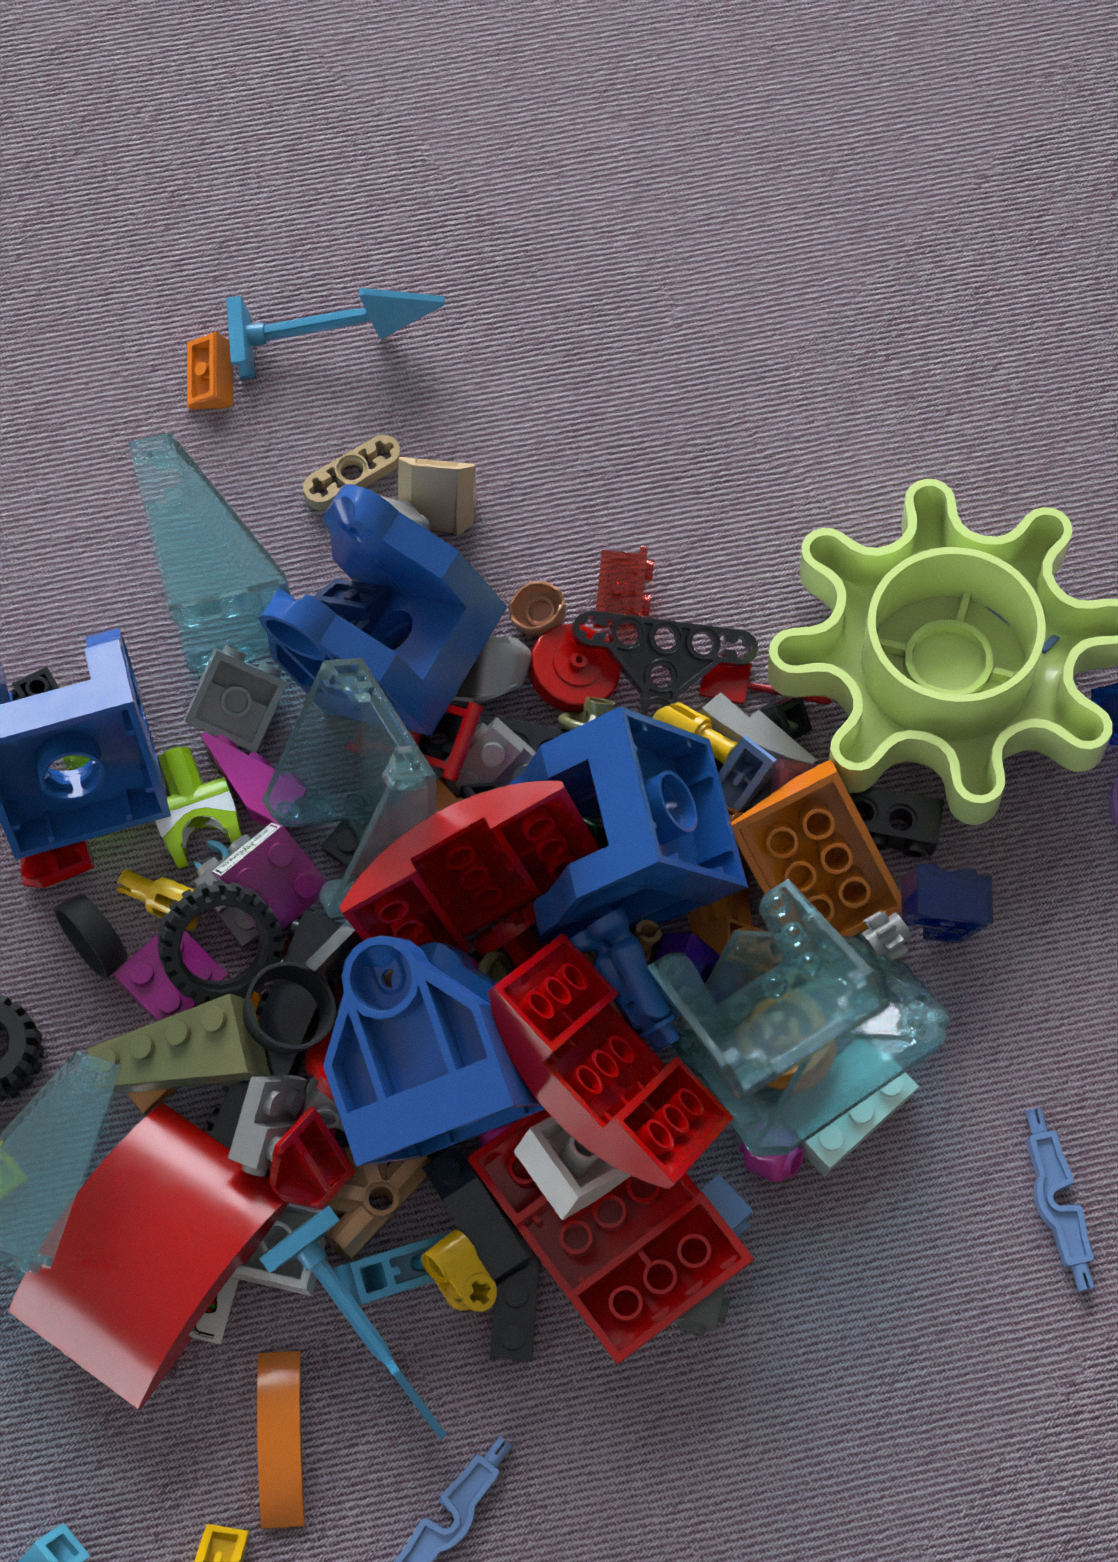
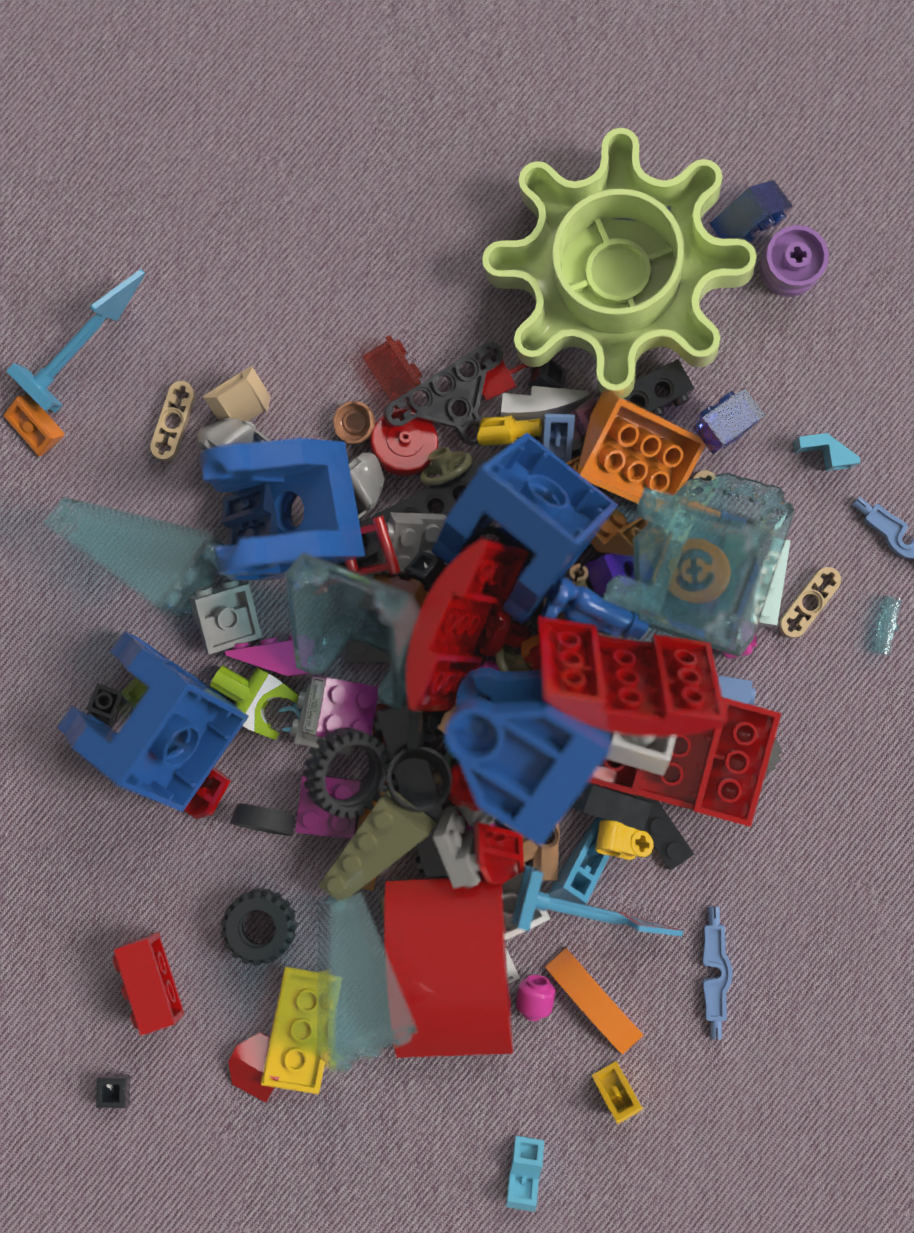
camera: 35 degrees left, 15 degrees up
(155, 894) = (282, 764): yellow arm -> none
(217, 1375) = (535, 997): none -> dark pink head
(885, 936) = (709, 468): light grey gear -> none
(917, 1164) = (816, 581): none -> tan beam
(962, 1277) = (886, 625): none -> clear light blue pin
(1048, 1042) = (835, 454): none -> medium azure slope

